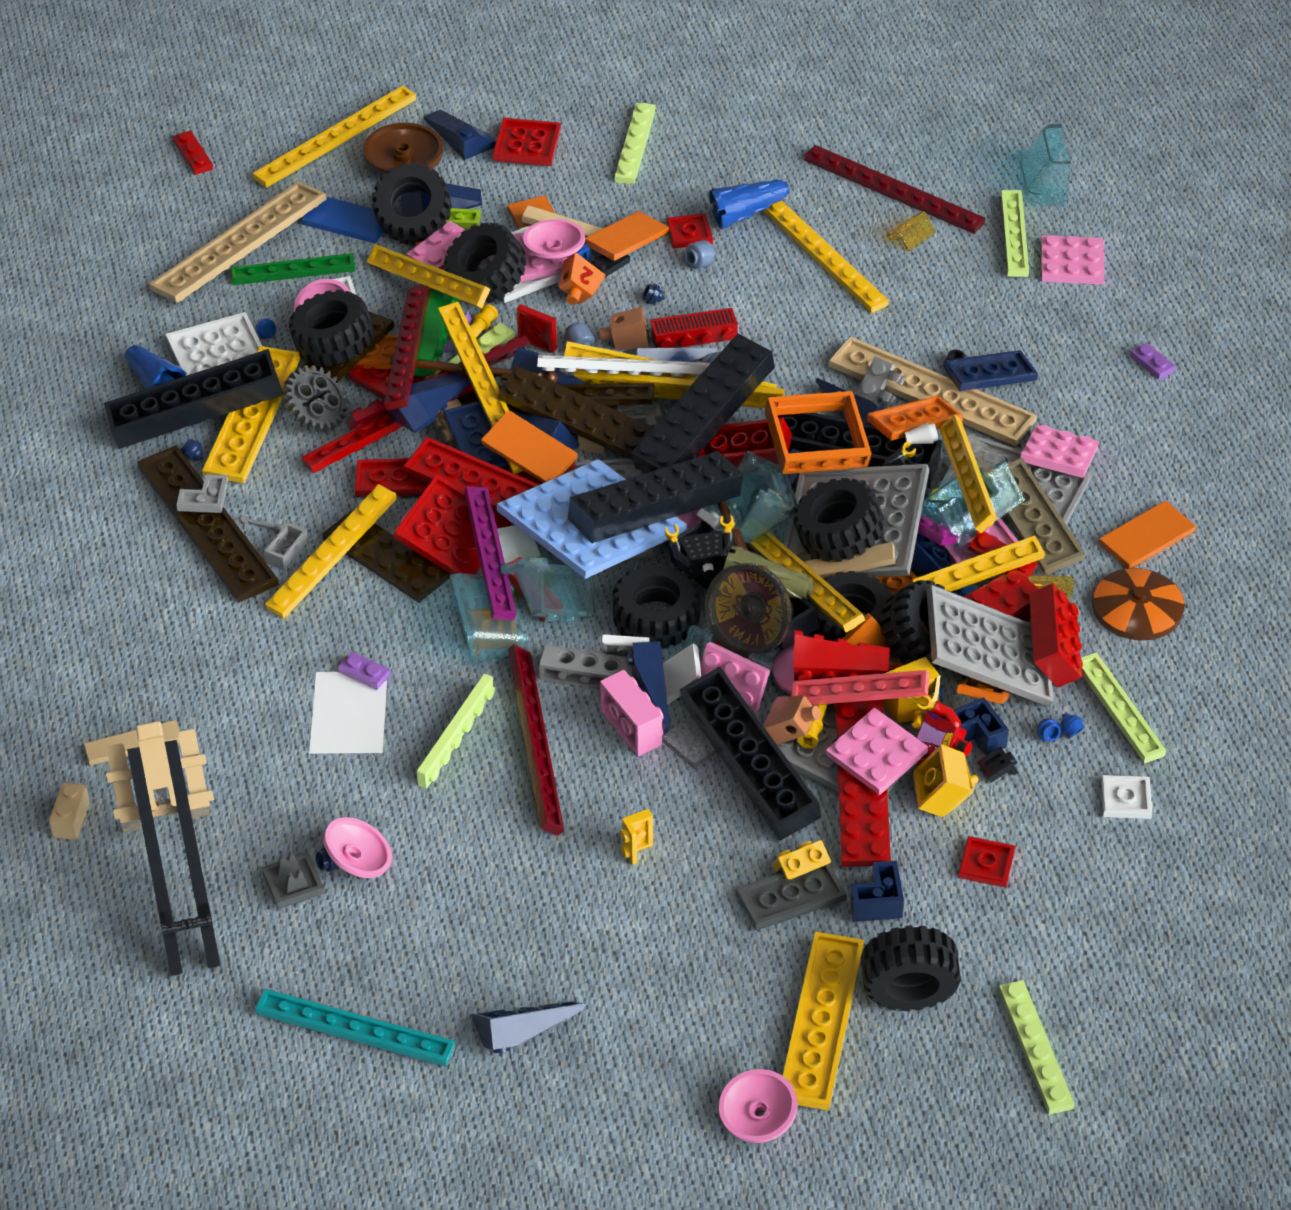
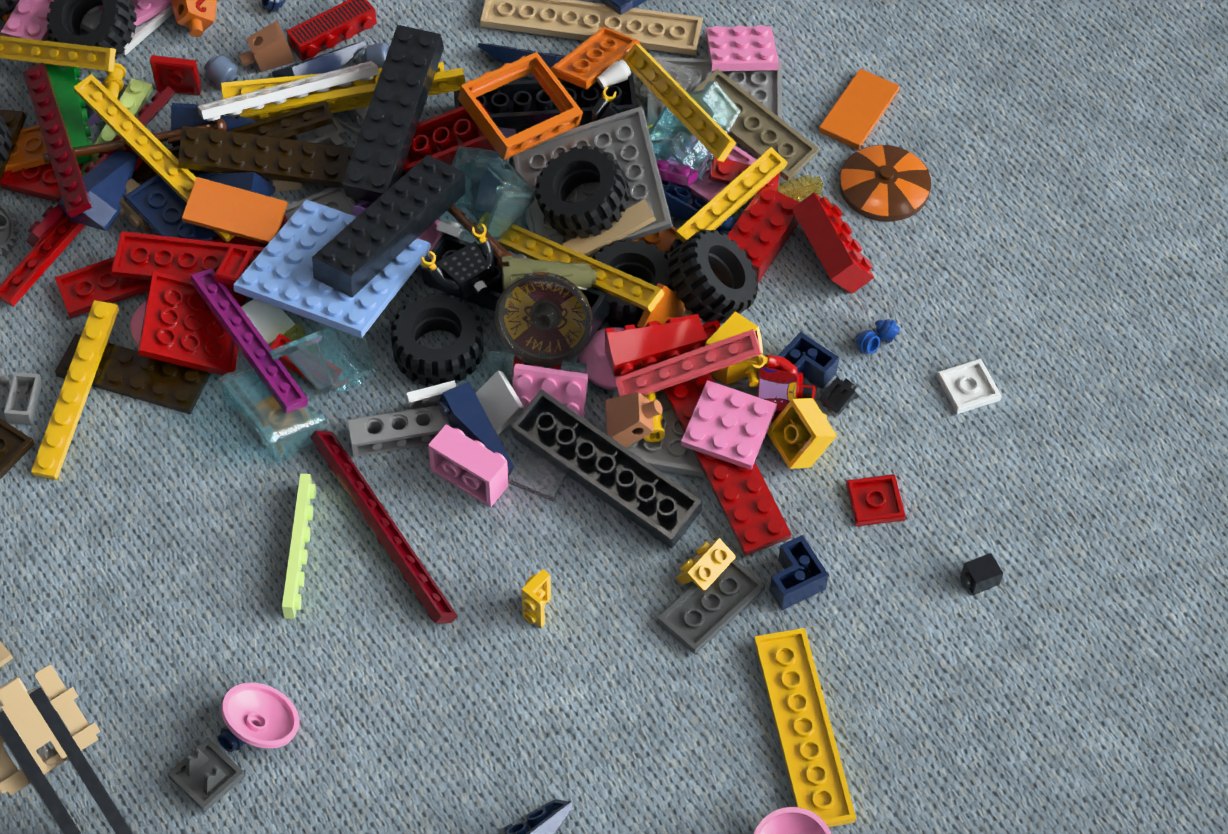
camera: 25 degrees left, 10 degrees up
(346, 715) = (174, 562): white sticker -> none
(364, 670) = (170, 510): medium lavender plate -> none
(506, 489) = (233, 264): none -> red tile
(876, 379) = (536, 26): light grey plate -> none
(910, 968) = (874, 647): black tyre -> none
(979, 689) = (792, 322): orange tile -> none
(985, 645) = (780, 277): light grey plate -> none
(1036, 1047) = (1012, 678): yellowish green plate -> none
(1051, 951) = (981, 574): none -> black brick
(1121, 709) = (924, 297): yellowish green plate -> none

